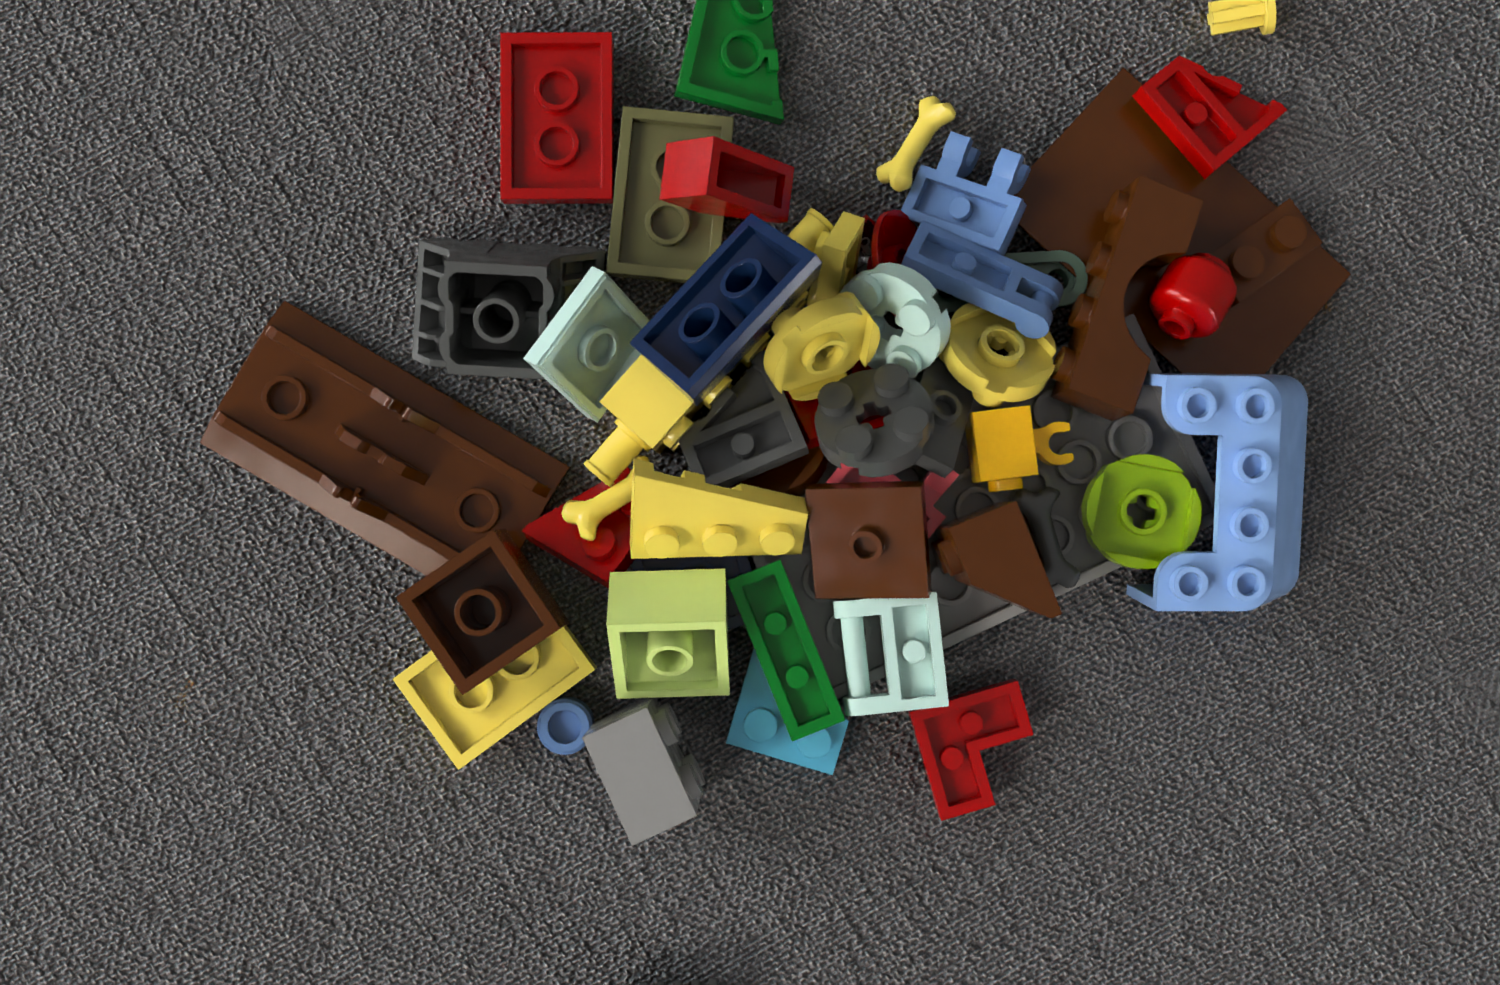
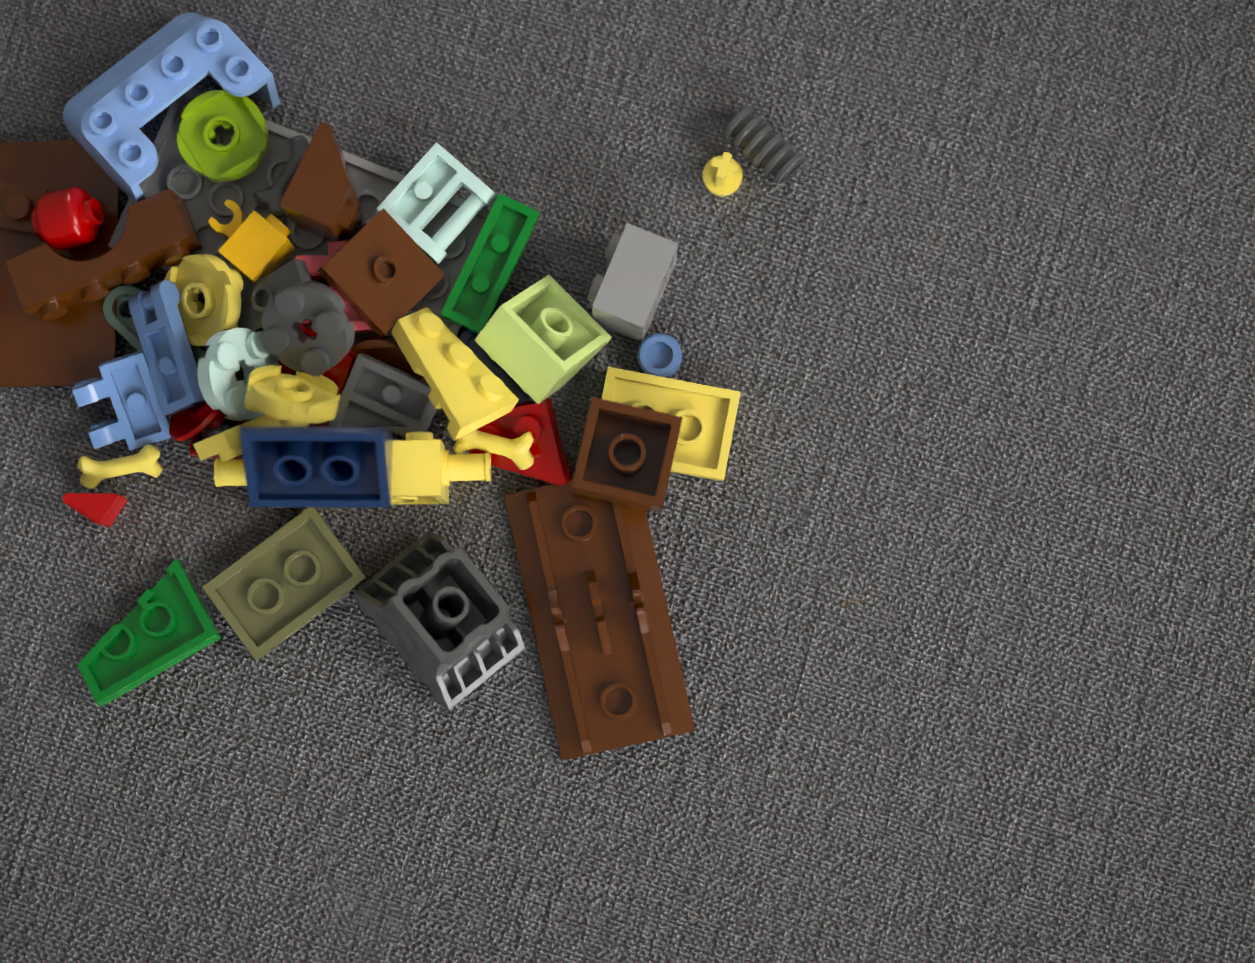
camera: 135 degrees left, 5 degrees down
(557, 117) = (298, 695): red plate -> none
(589, 343) = (414, 538): light aqua plate -> none
(681, 942) = (722, 175): none -> light yellow piece
(726, 180) = (245, 550): red slope -> none
(761, 729) = (551, 240): medium azure wing -> none
(896, 86) = (98, 507): none -> red slope
(953, 739) = (454, 125): red plate -> none

